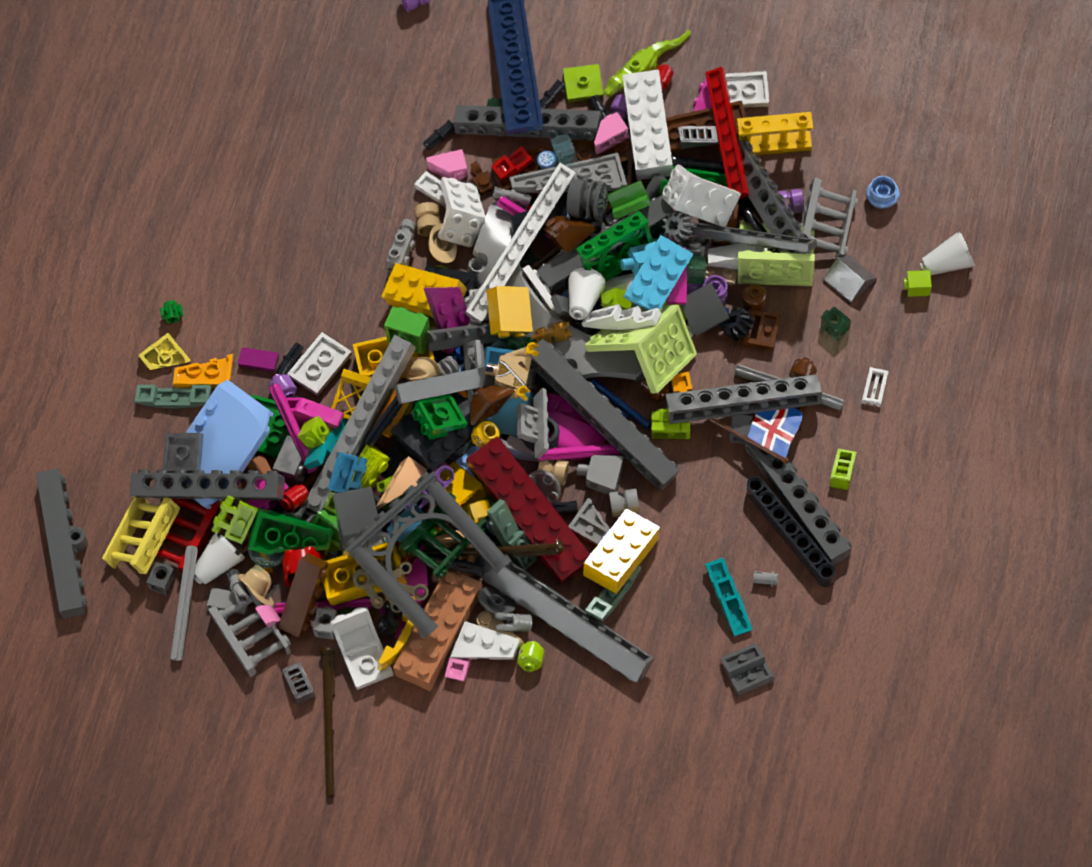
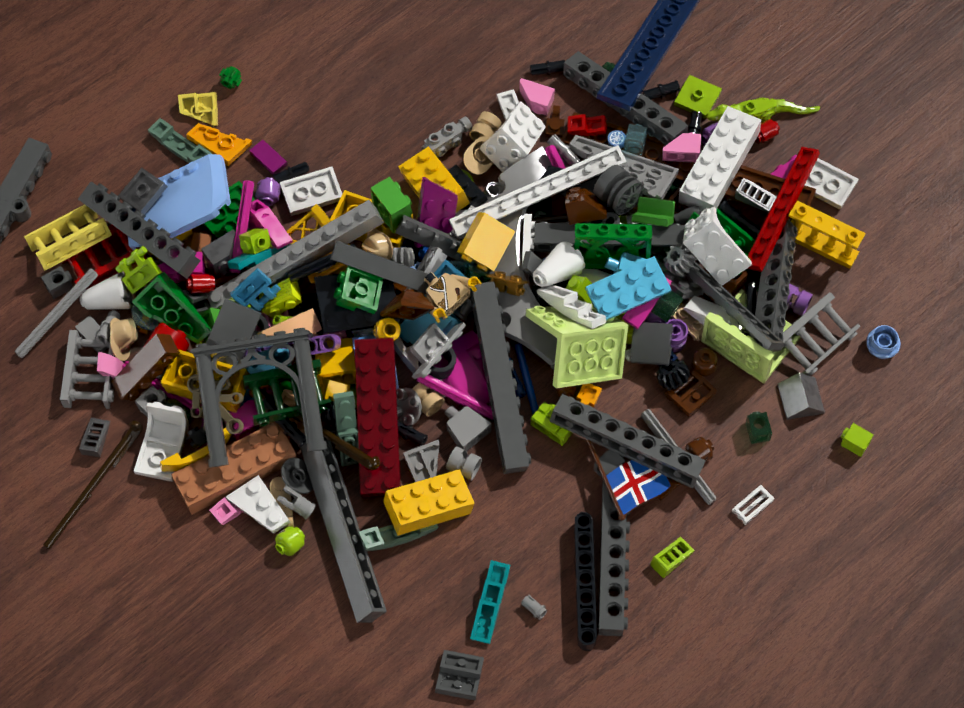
camera: 30 degrees right, 0 degrees up
(948, 256) = (900, 433): white cone -> none

